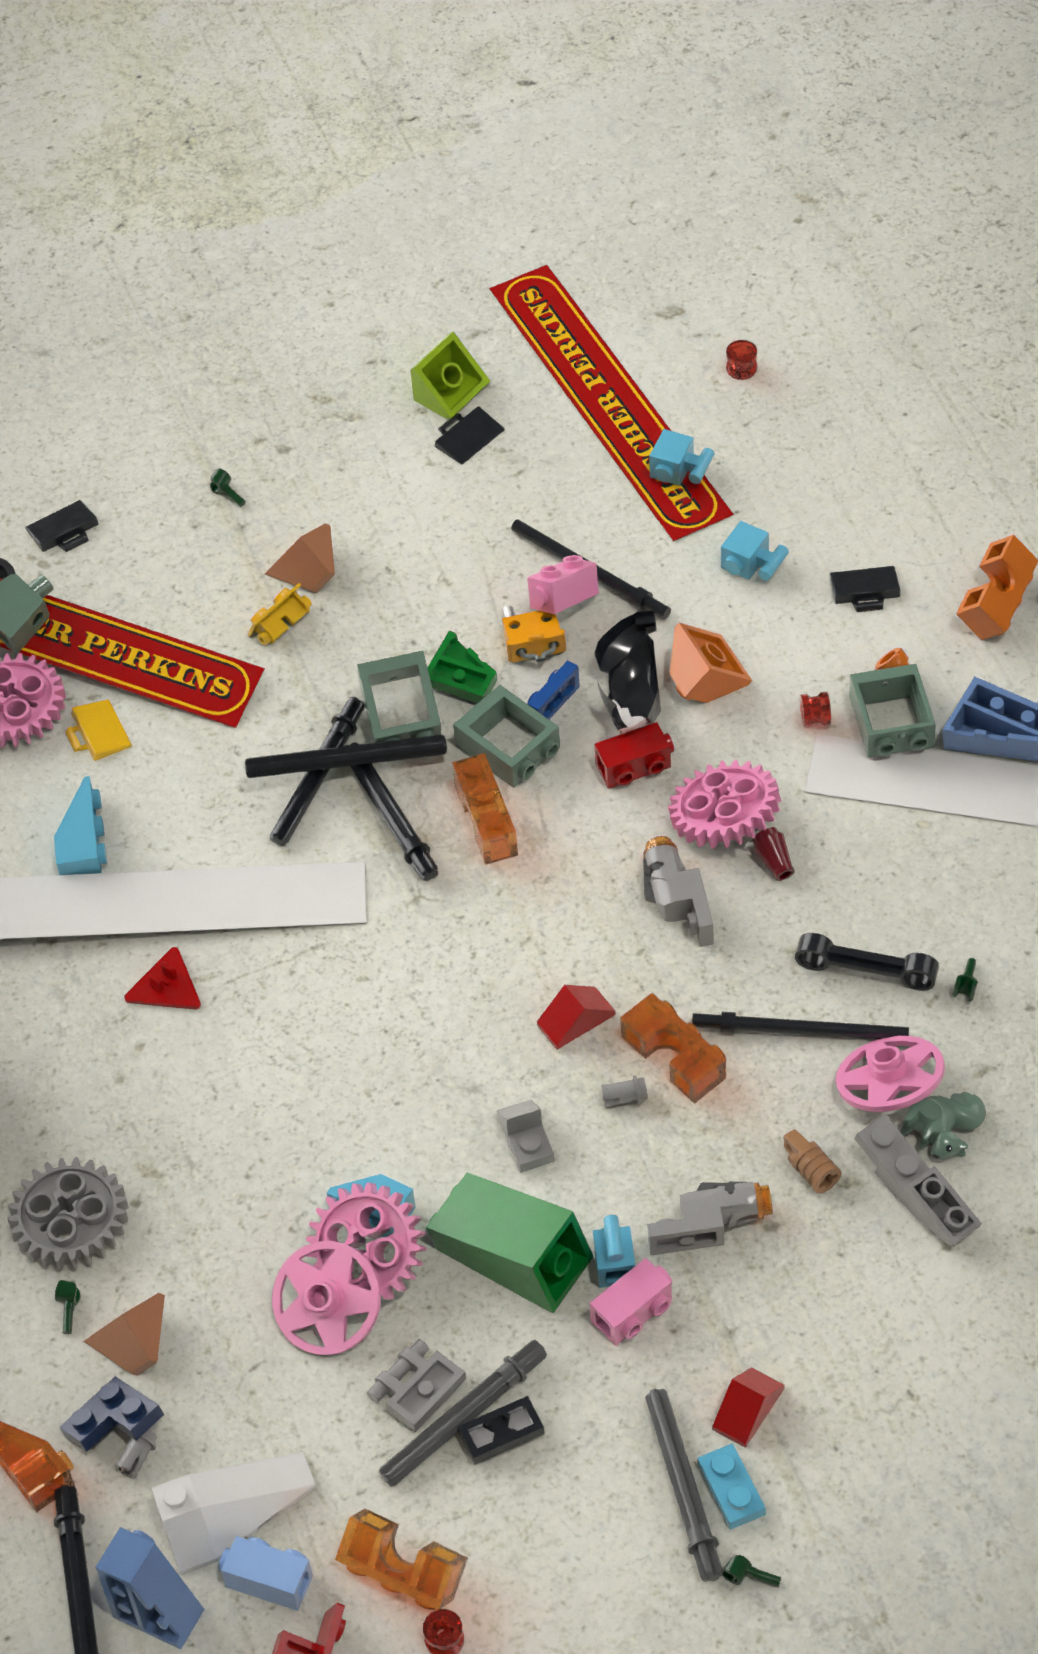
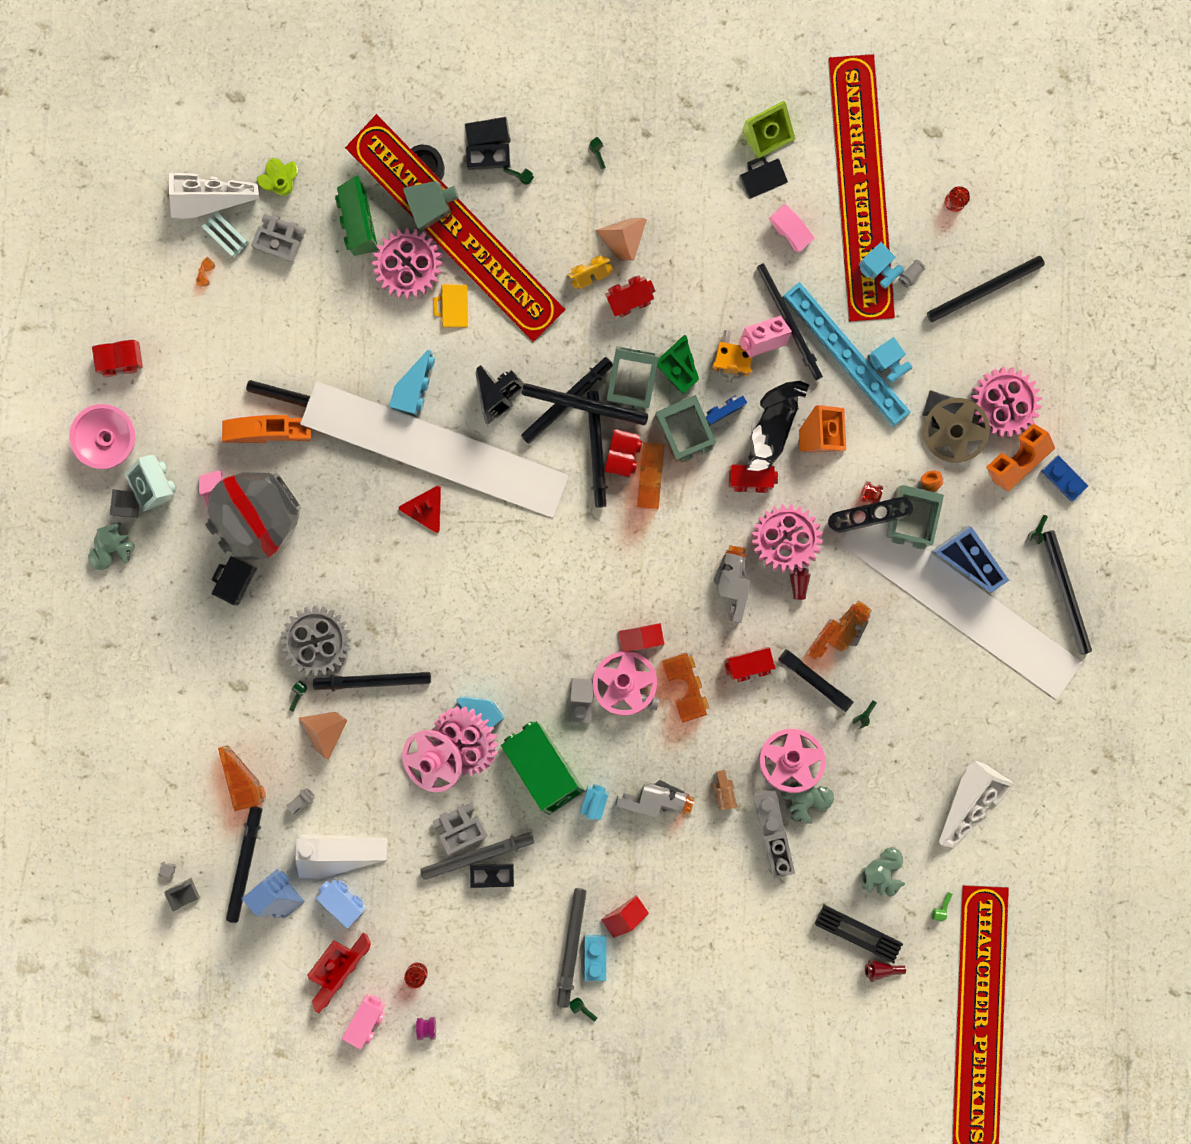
camera: 20 degrees right, 35 degrees up
(74, 544) = (488, 156): none -> black piece
(111, 1406) = (296, 771): plate -> none
(135, 551) = (525, 177): none -> dark green hand
(180, 1235) = (341, 682): none -> black axle
(211, 785) = (495, 395): none -> black piece
(354, 610) = (631, 295): none -> red brick
(371, 1552) = (417, 943): clear orange arch -> none
(430, 798) = (622, 453): none -> red brick
(529, 462) = (791, 226): none -> bright pink slope
(580, 1077) = (625, 683): none -> bright pink wheel
(632, 1301) = (592, 833): bright pink brick -> none
(691, 576) = (846, 354): none -> medium azure tile
(725, 461) = (907, 278): none -> light grey pin
(729, 1022) = (723, 682): black bar -> none
(756, 978) = (750, 663): none -> red brick
(830, 730) = (870, 517): none -> black beam
(836, 437) = (985, 288): none -> black axle
(870, 889) = (842, 634): none -> clear orange plate
(891, 594) = (956, 430): none -> dark tan wheel
(939, 540) = (1024, 395): none -> bright pink gear

